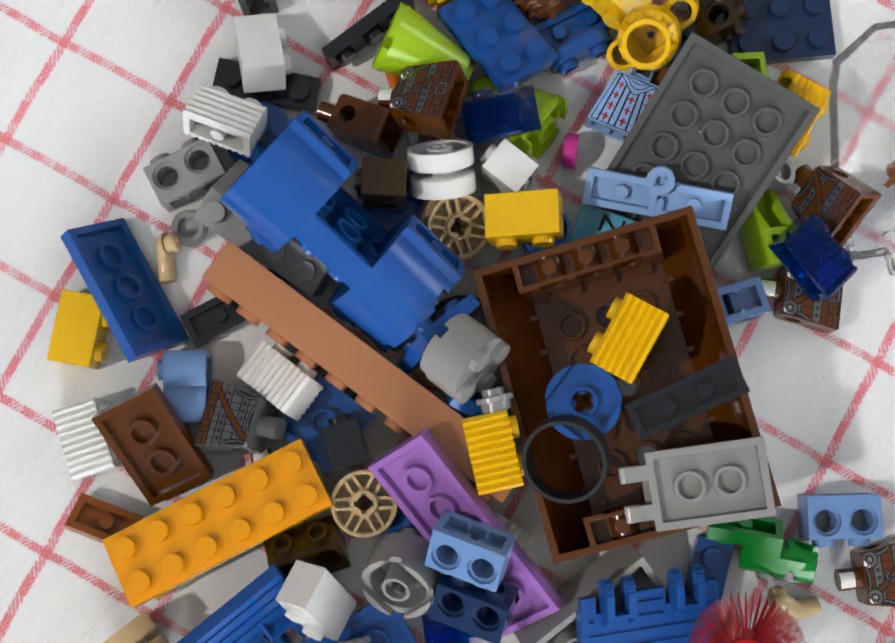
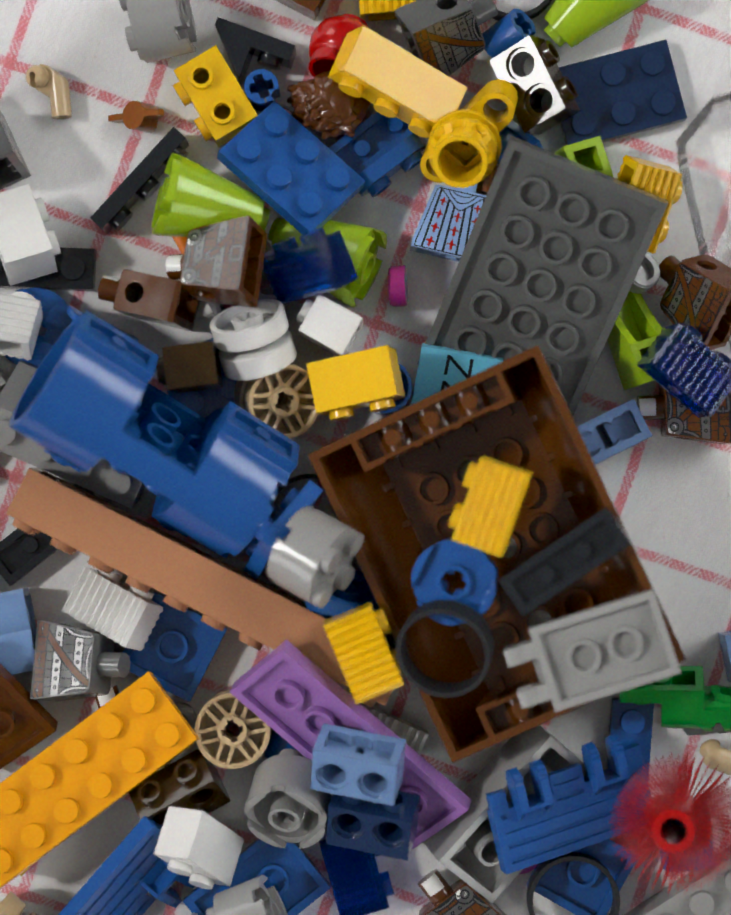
camera: 10 degrees left, 5 degrees up
(345, 442) = (199, 666): black brick -> none
(494, 400) = (357, 596): light grey plate -> none
(656, 195) = (503, 328): light blue hinge -> none

